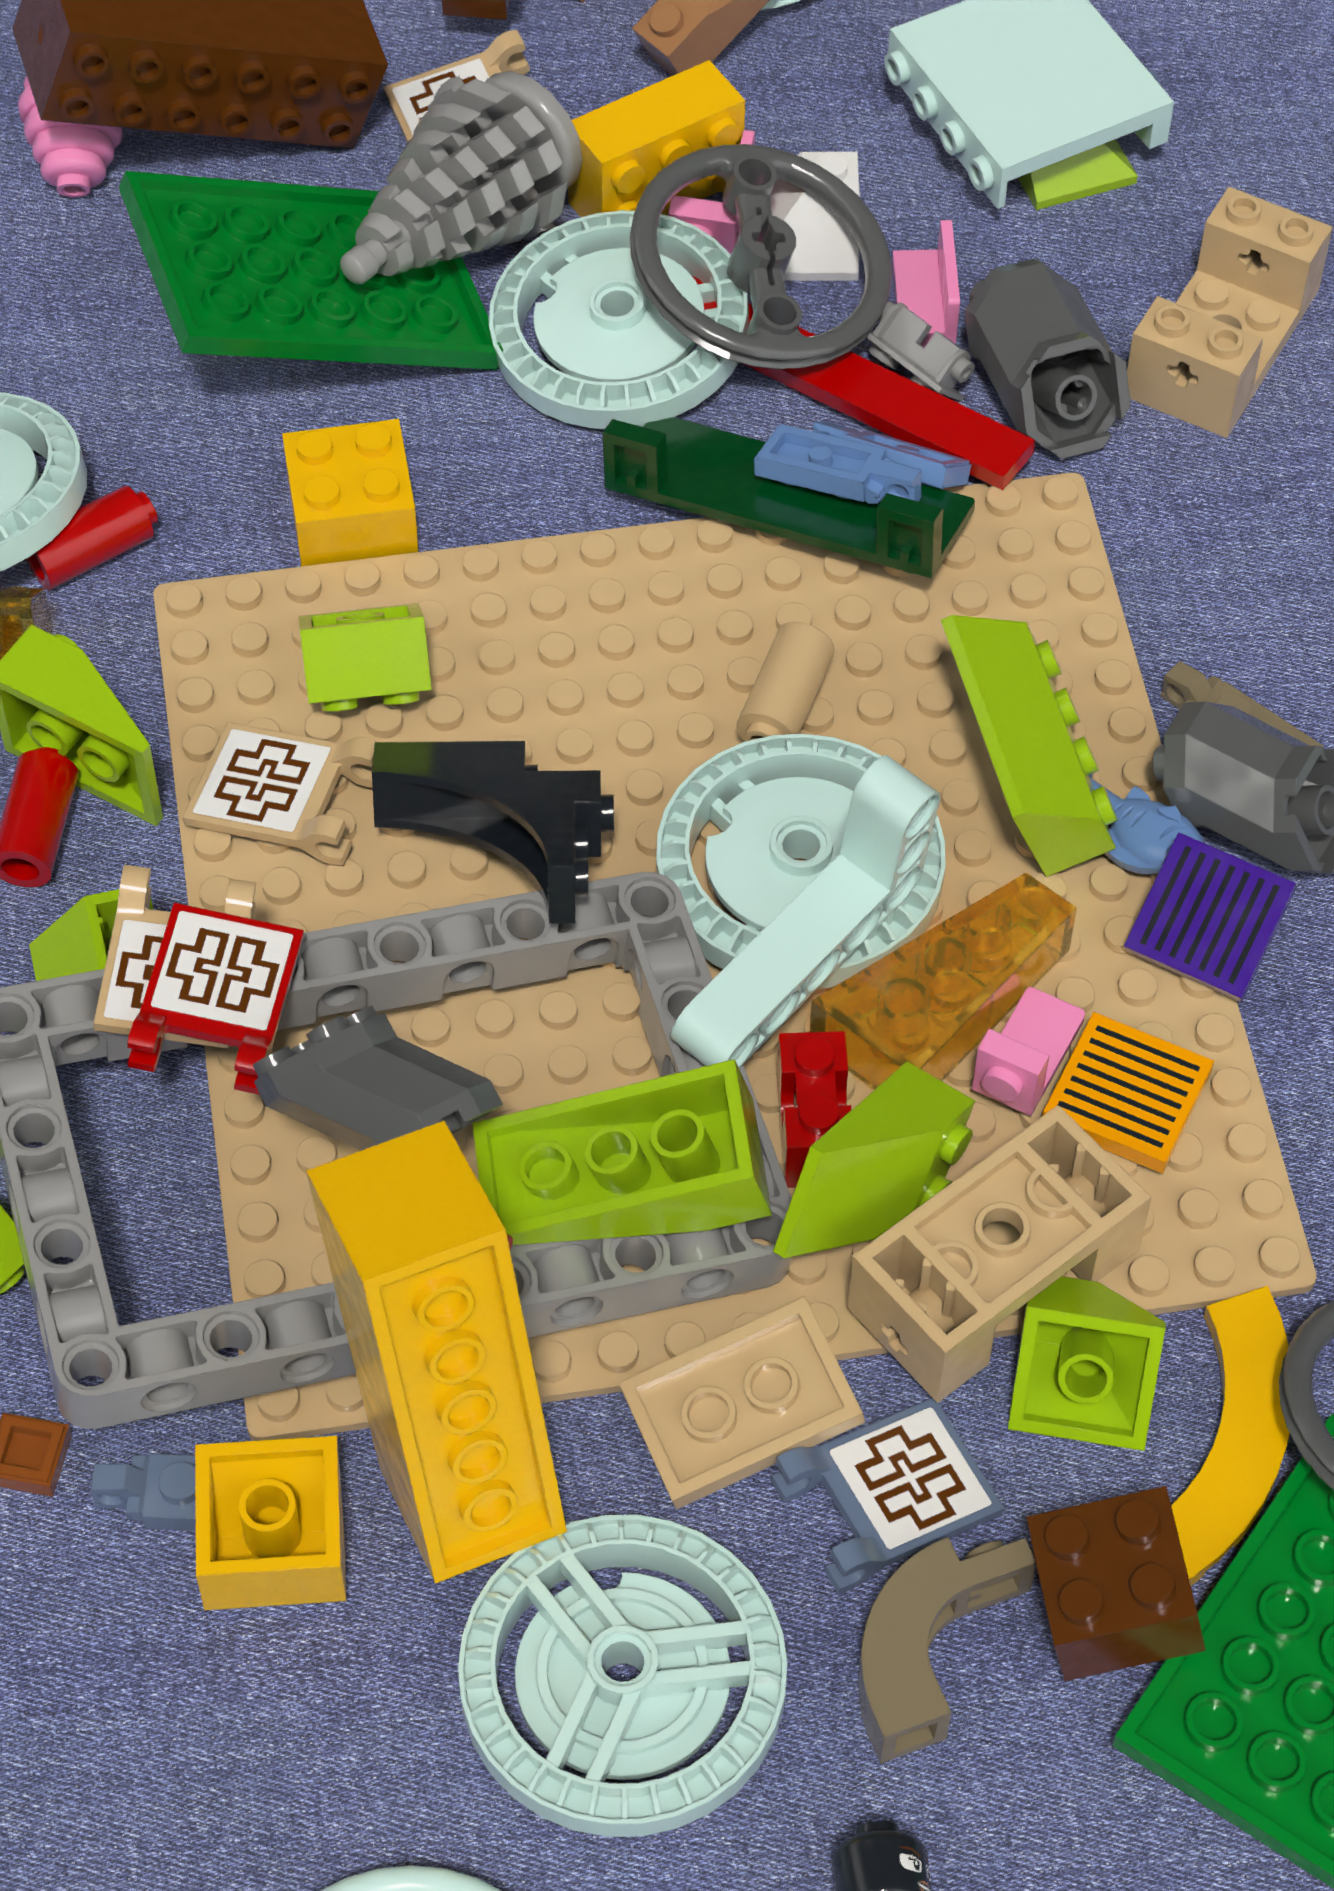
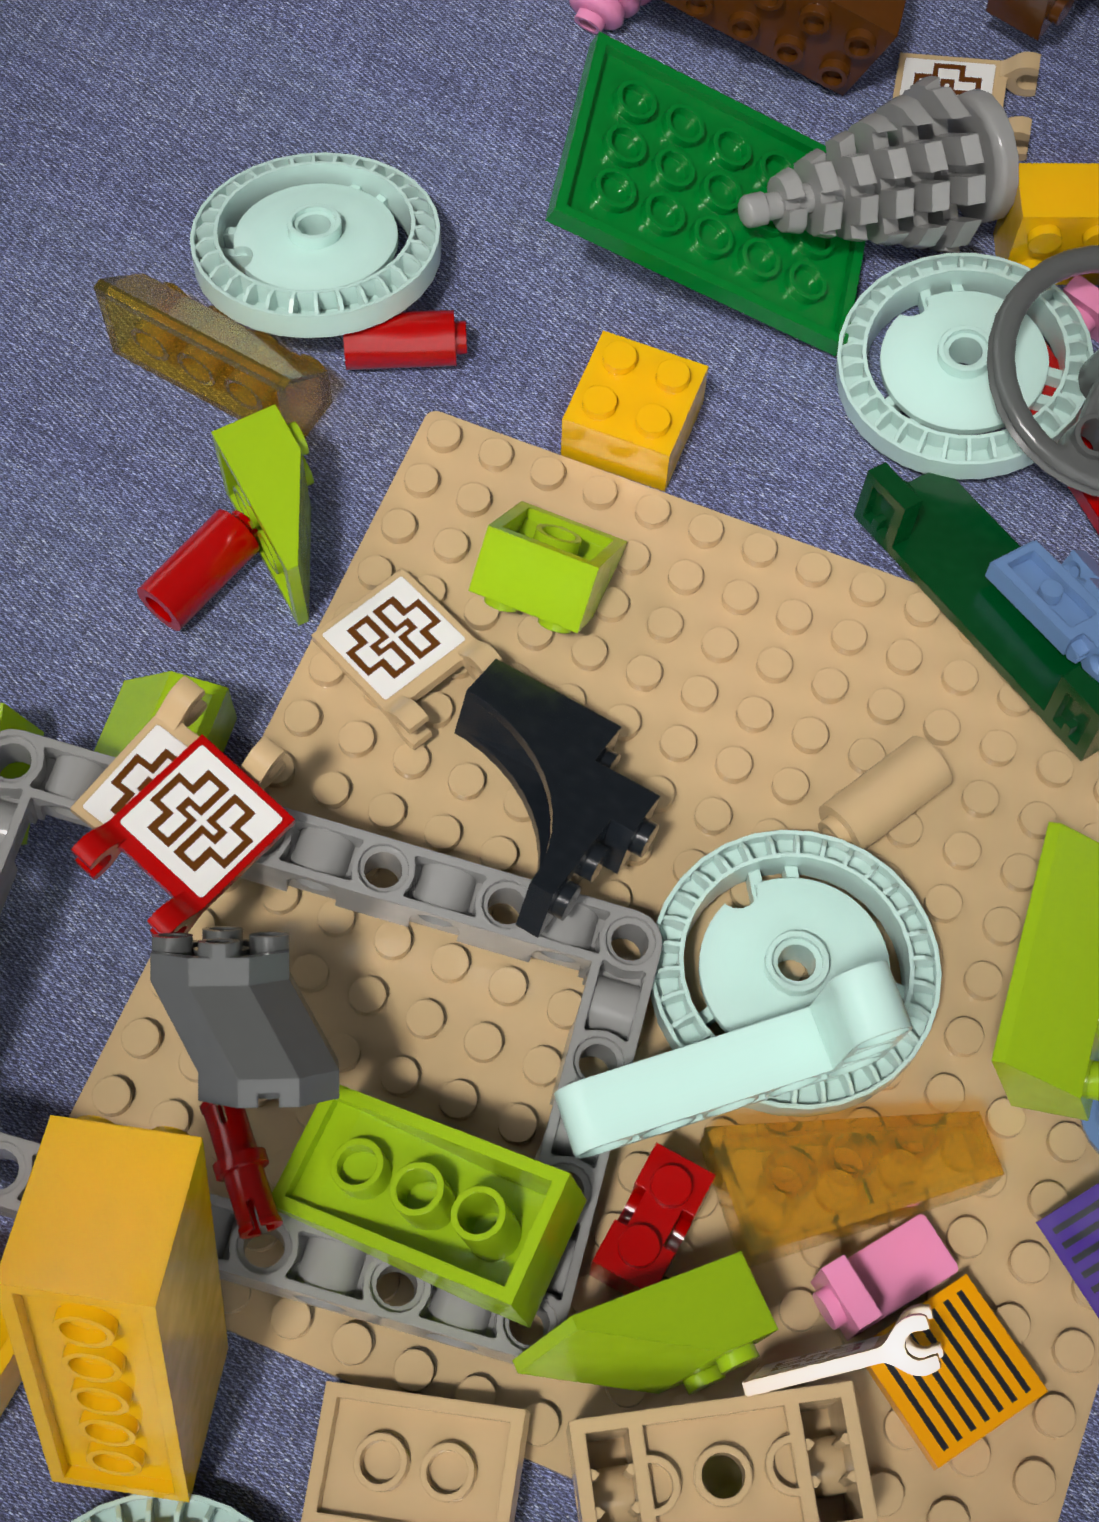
camera: 30 degrees right, 10 degrees up
(1057, 1084) = (892, 1348): none -> flag

